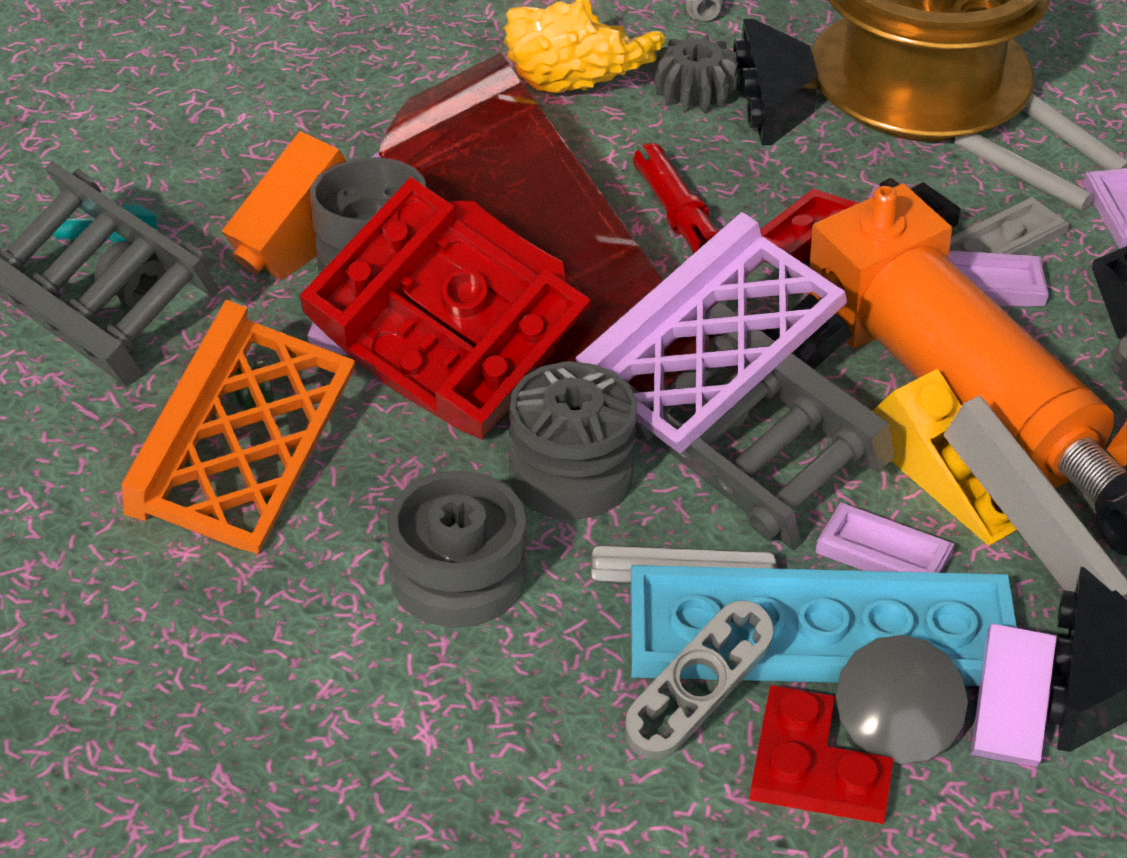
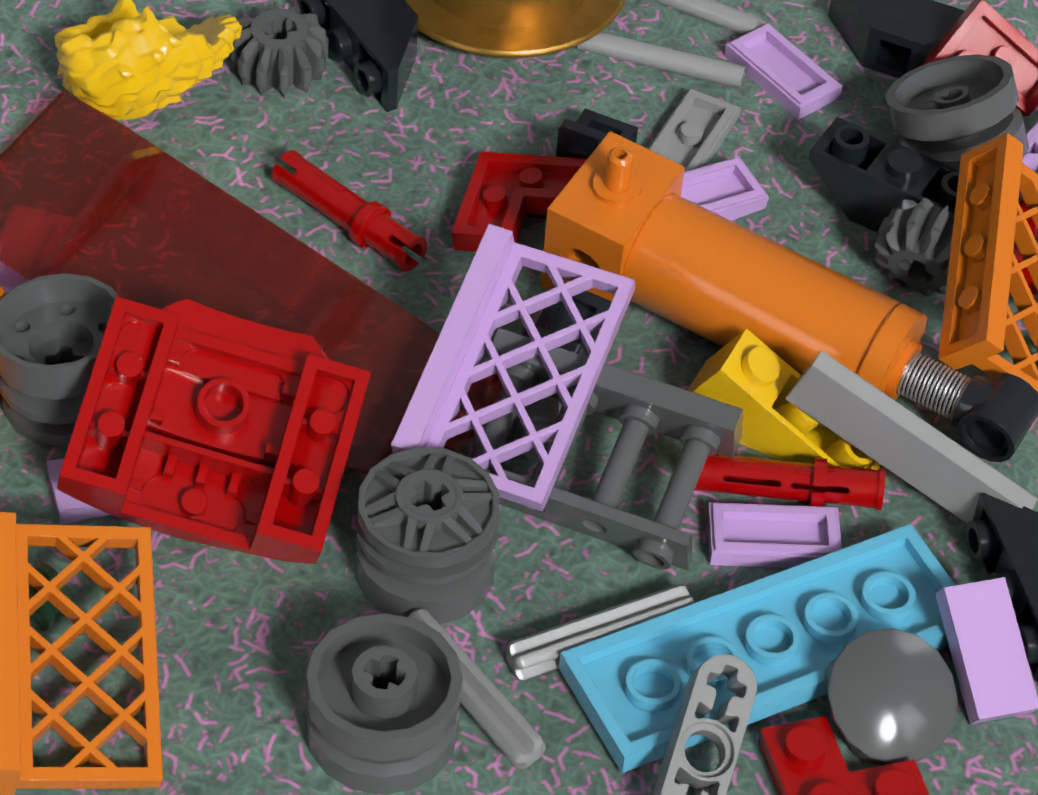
camera: 30 degrees left, 5 degrees up
(548, 575) = (491, 708): none -> light grey axle
(941, 516) = (793, 481): none -> red pin

